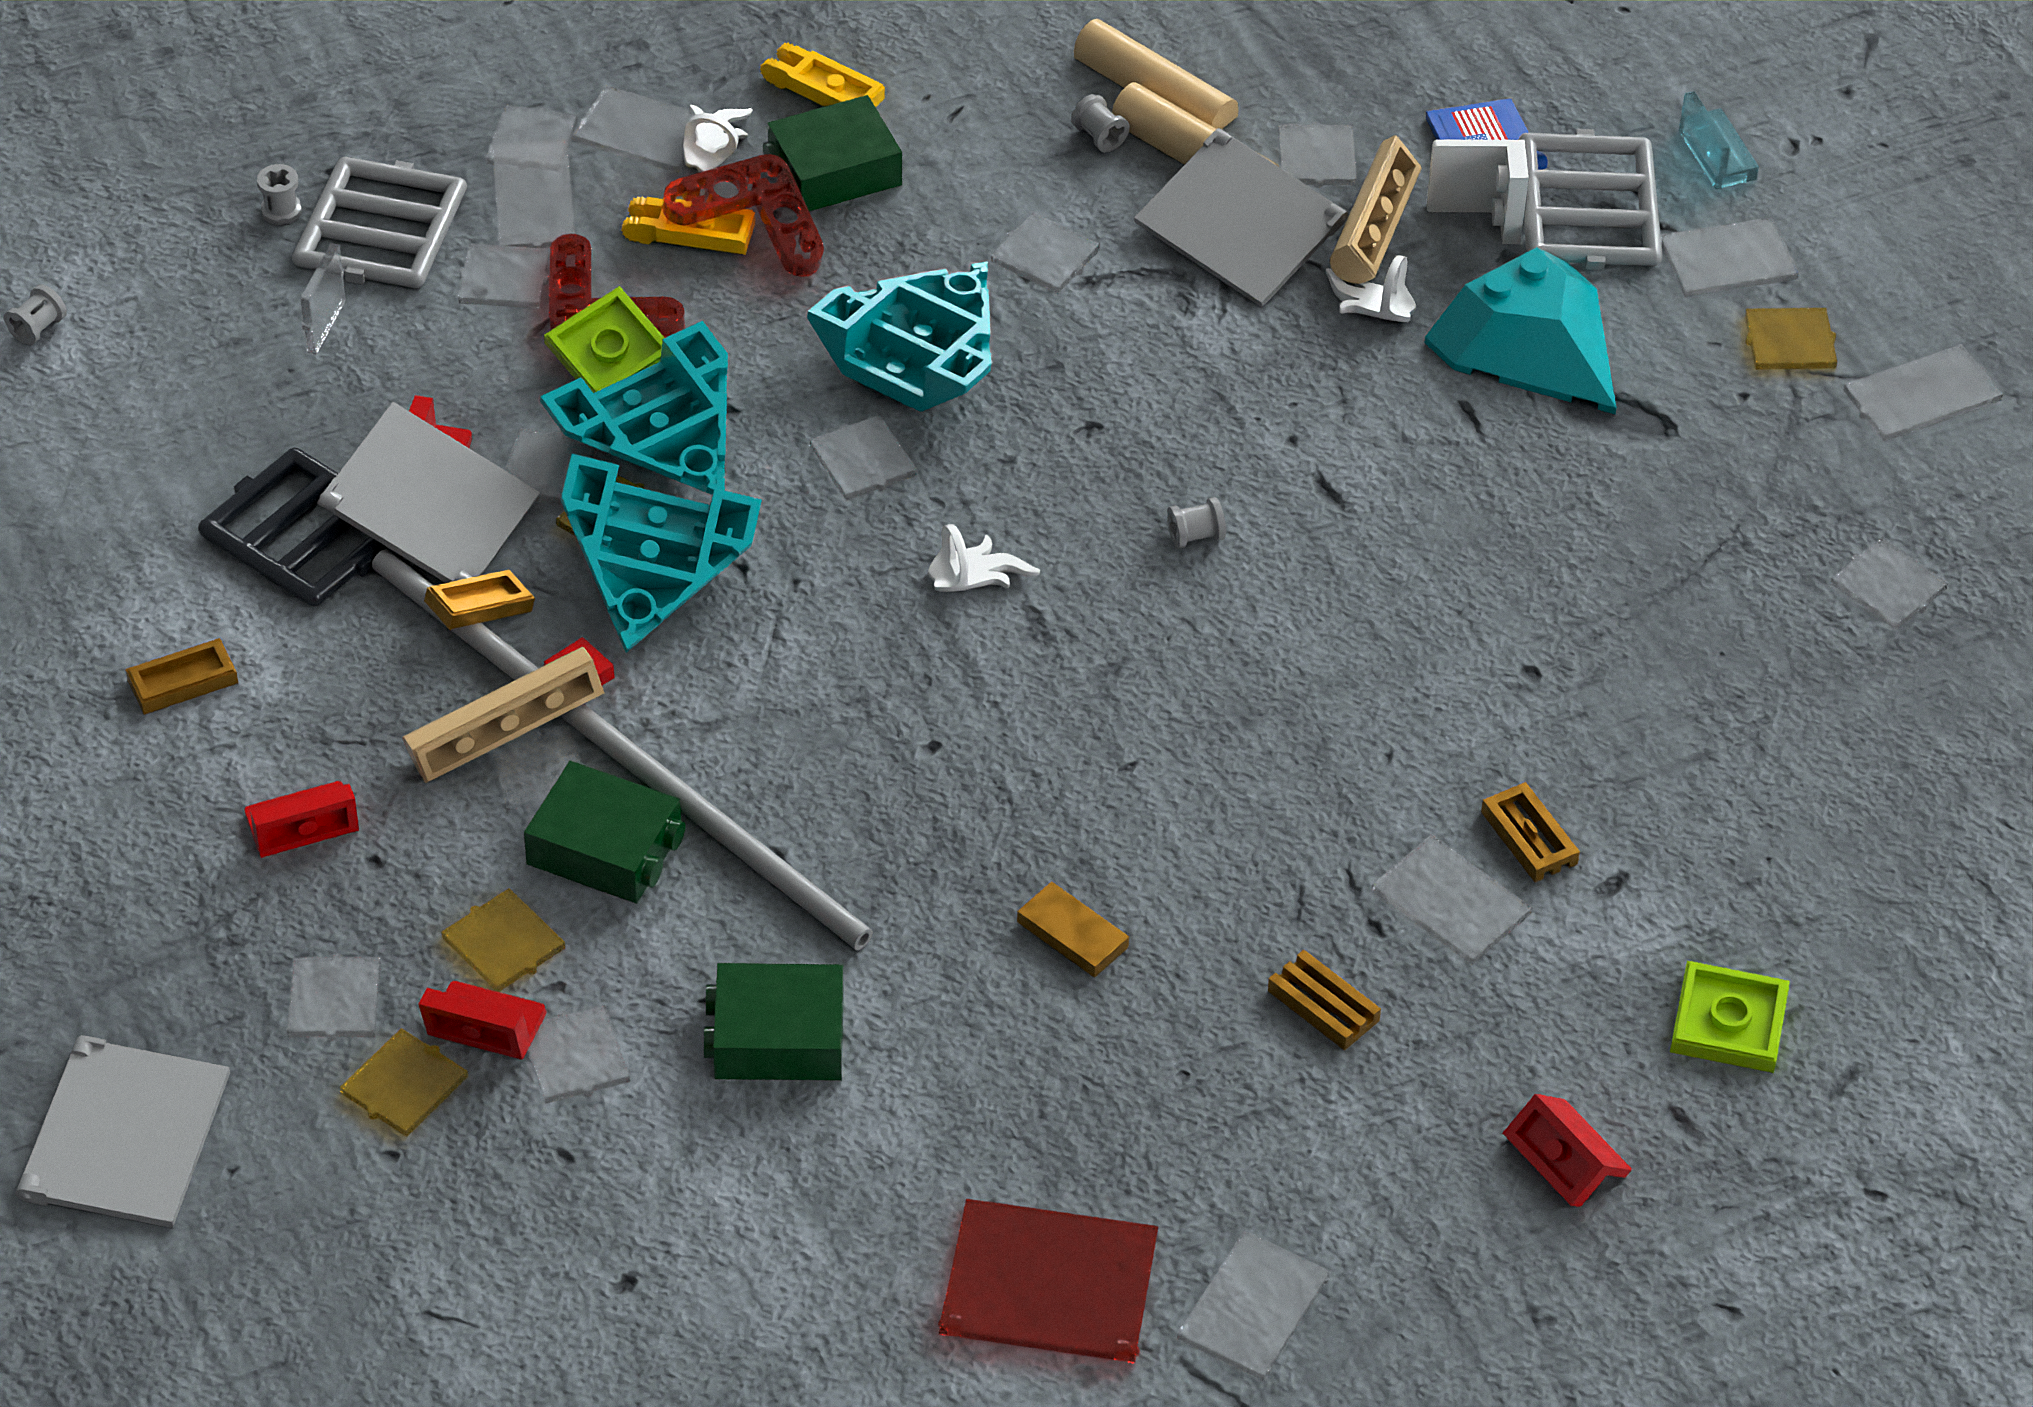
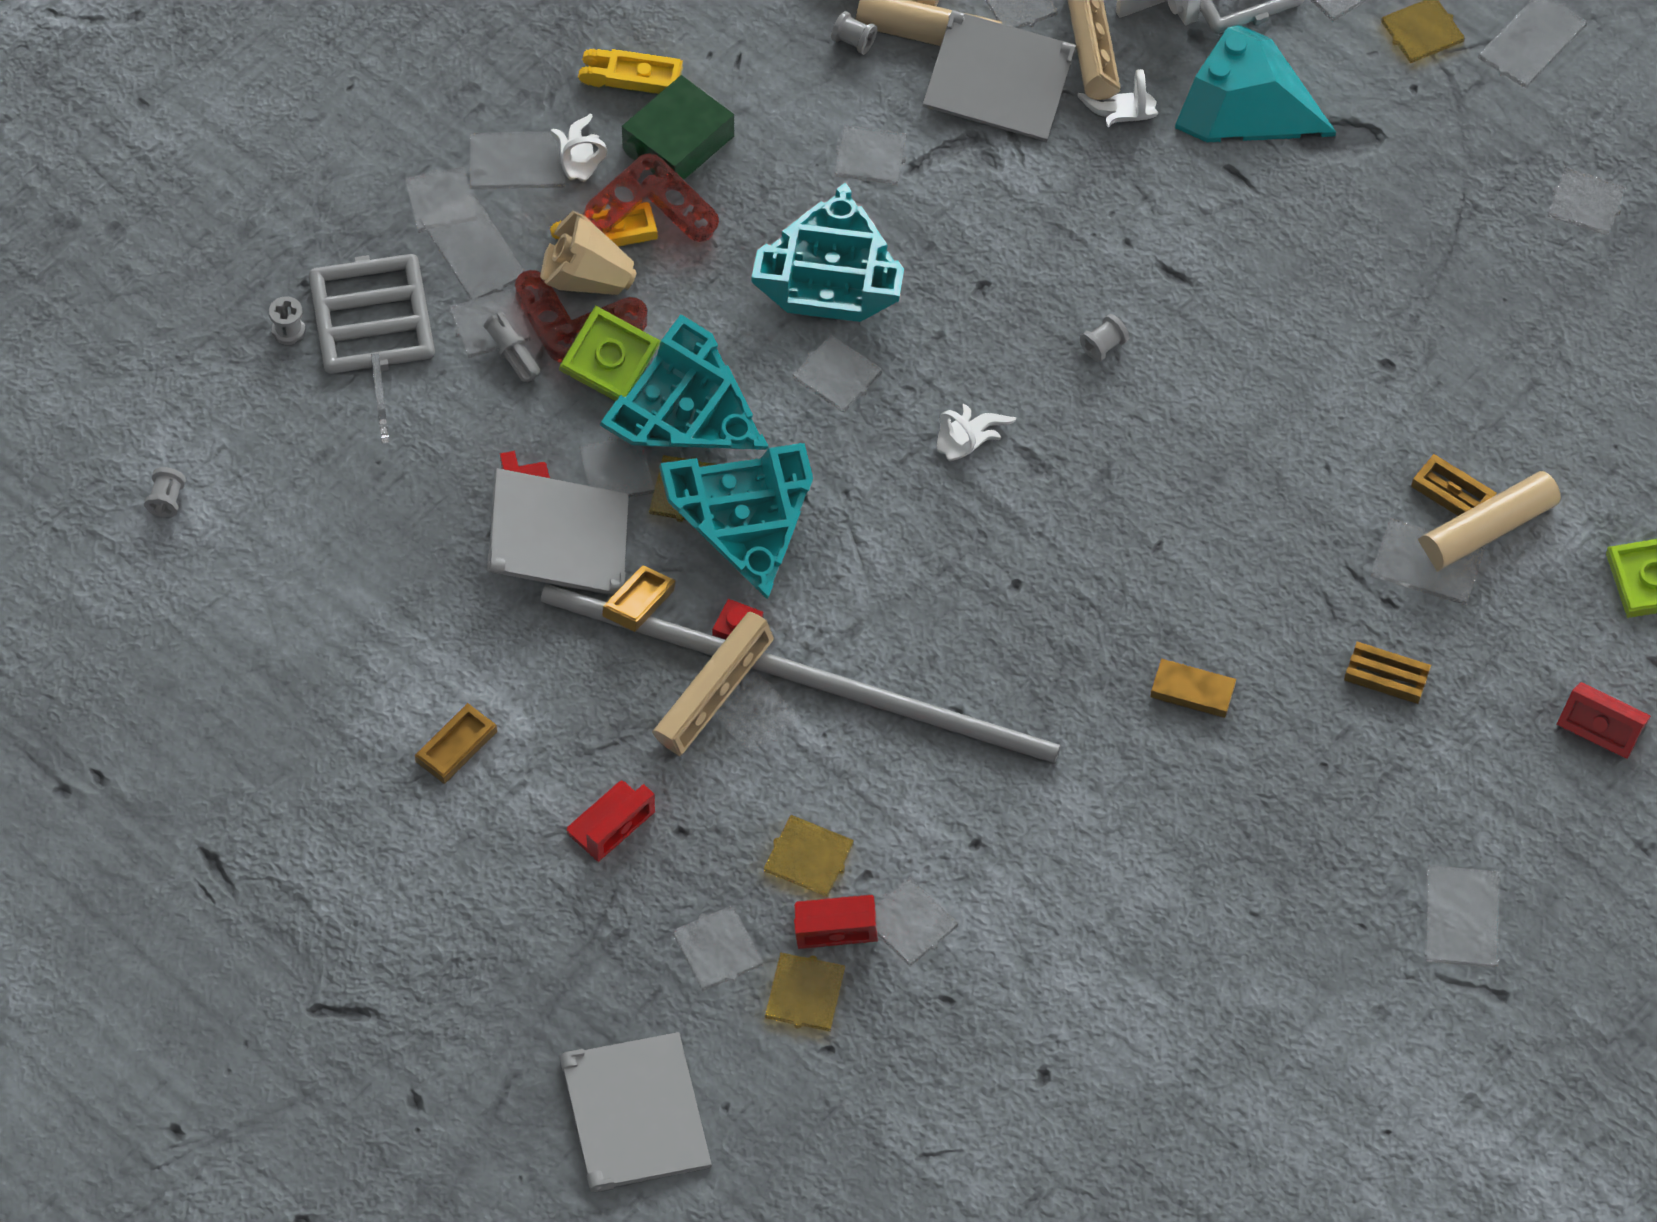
camera: 25 degrees left, 10 degrees up
(283, 571) = (440, 621): black bar -> none
(507, 303) = (512, 347): none -> light grey axle
(604, 832) = (837, 746): dark green brick -> none
(642, 241) = (586, 260): none -> tan cone
(776, 1021) = (1039, 842): dark green brick -> none
(1049, 1280) = (1322, 955): clear red piece -> none
(1550, 876) = (1490, 520): none -> tan brick

